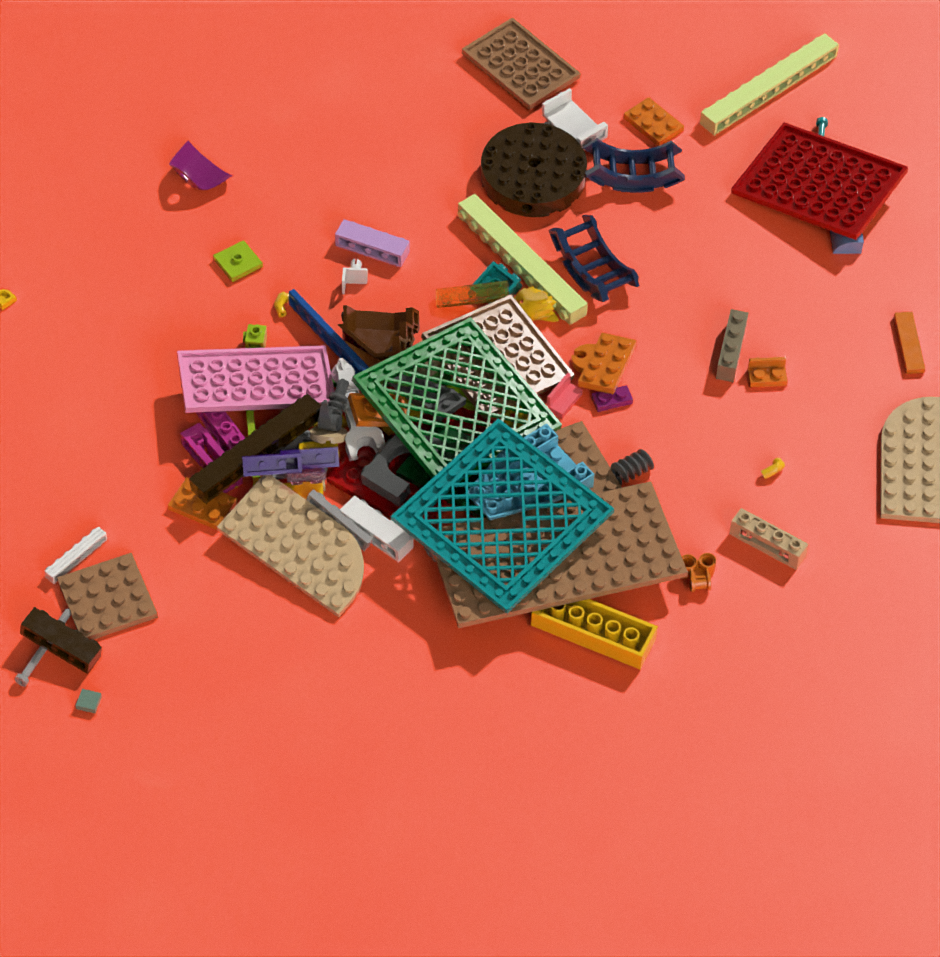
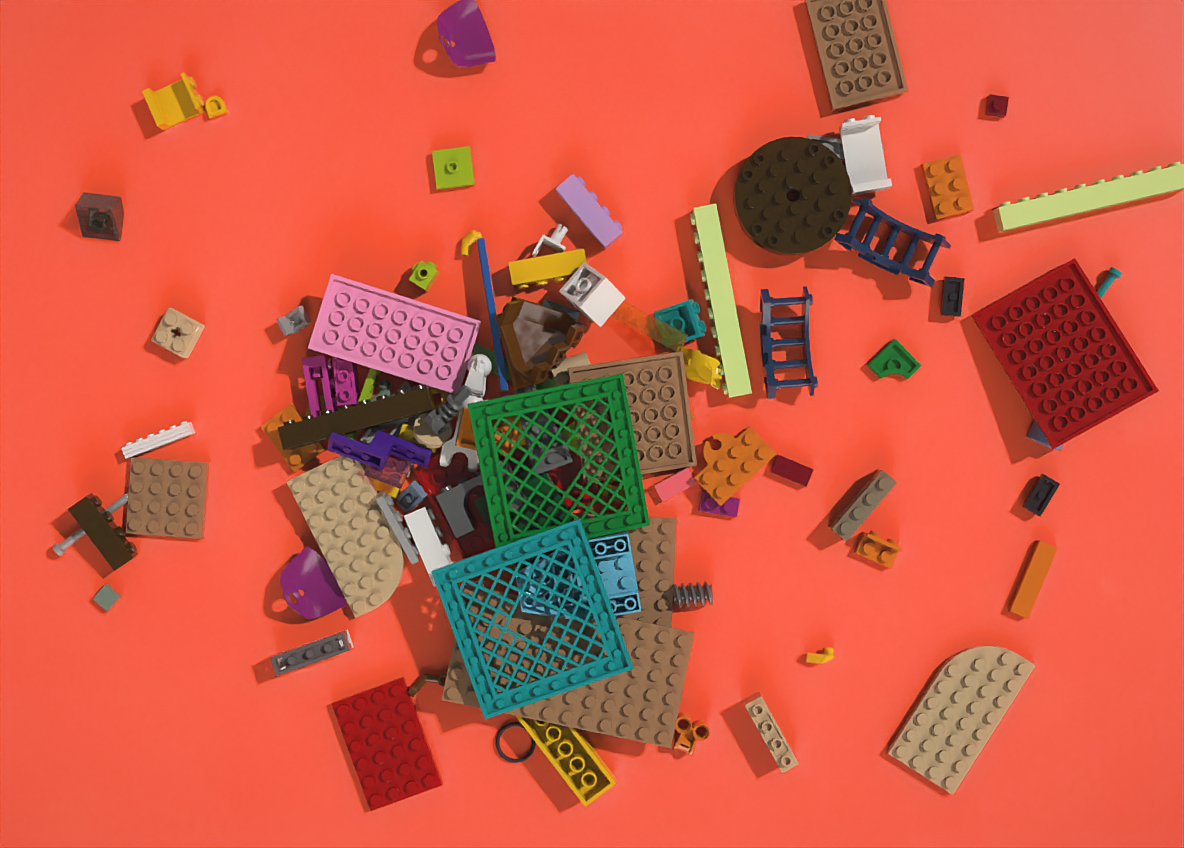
camera: 30 degrees right, 35 degrees up
(53, 466) = (188, 327): none -> tan brick
(157, 414) = (294, 321): none -> light grey bracket
(283, 603) = (313, 576): none -> magenta piece
(313, 652) = (312, 652): none -> dark grey piece
(339, 492) = (411, 497): none -> sand blue slope
(362, 291) = (546, 268): none -> yellow brick
(410, 285) = (592, 294): none -> white brick
(427, 646) = (426, 678): none -> reddish brown arm
(427, 705) = (387, 743): none -> red plate
(549, 637) = (500, 751): none -> black tyre
(656, 60) = (996, 105): none -> dark red plate
(657, 350) = (792, 470): none -> dark red tile
(690, 244) = (894, 360): none -> green tile
(706, 184) = (952, 296): none -> black plate
(872, 282) = (1040, 495): none -> black plate

